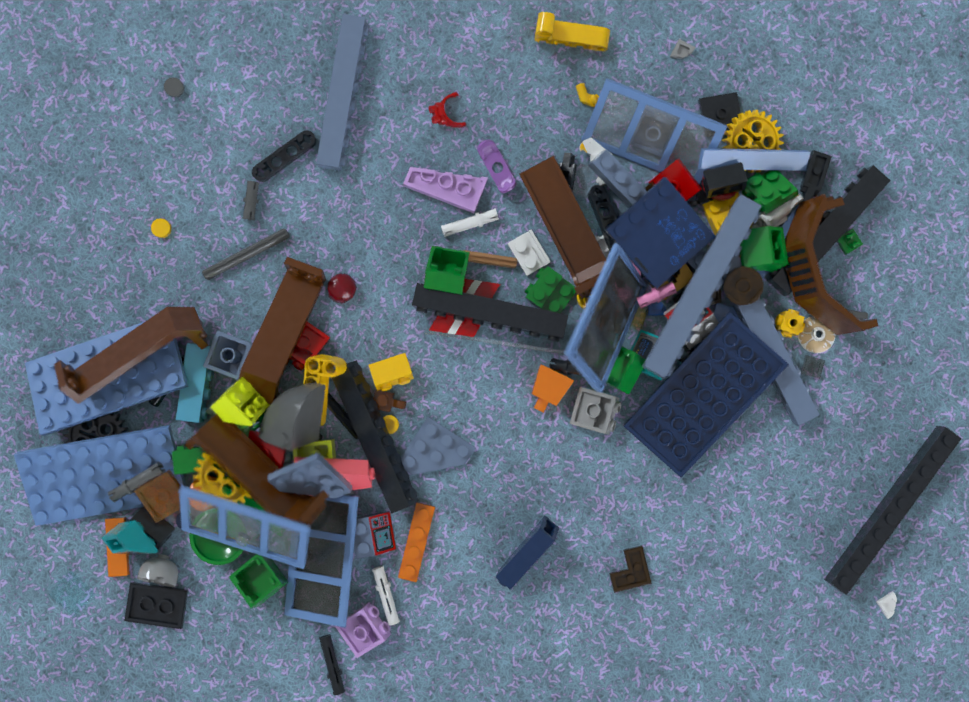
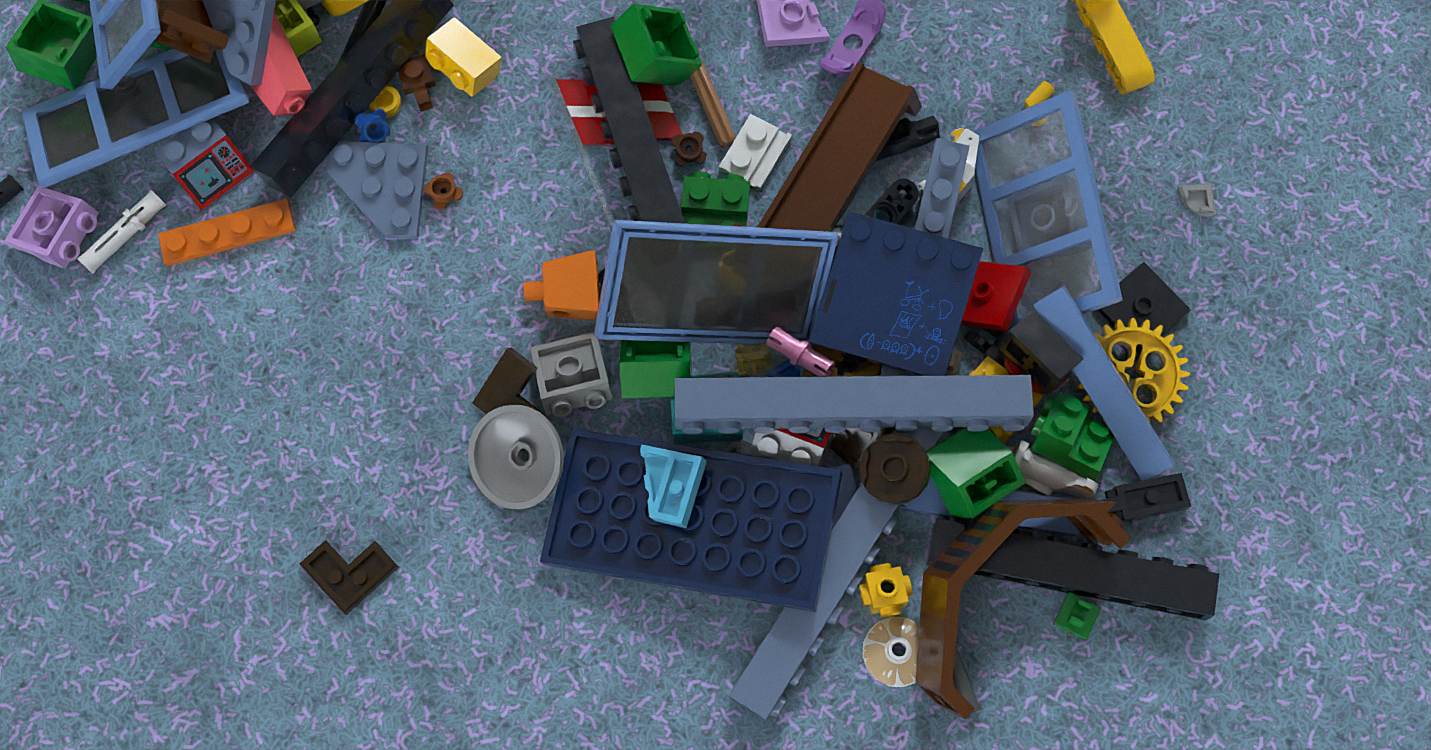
camera: 60 degrees right, 15 degrees down
(402, 438) = (376, 134): none -> blue plate
(454, 425) = (440, 182): none -> dark orange plate
(470, 222) = (758, 55): white pin -> none
(513, 282) = (693, 140): none -> reddish brown plate
(528, 553) = (295, 393): dark blue slope -> none
(588, 450) = (506, 383): none -> dark brown tile
(626, 469) = (499, 460): none -> light grey dish
(687, 395) = (671, 484): none -> medium azure wing
(812, 367) = (840, 674): clear smoke tile -> none

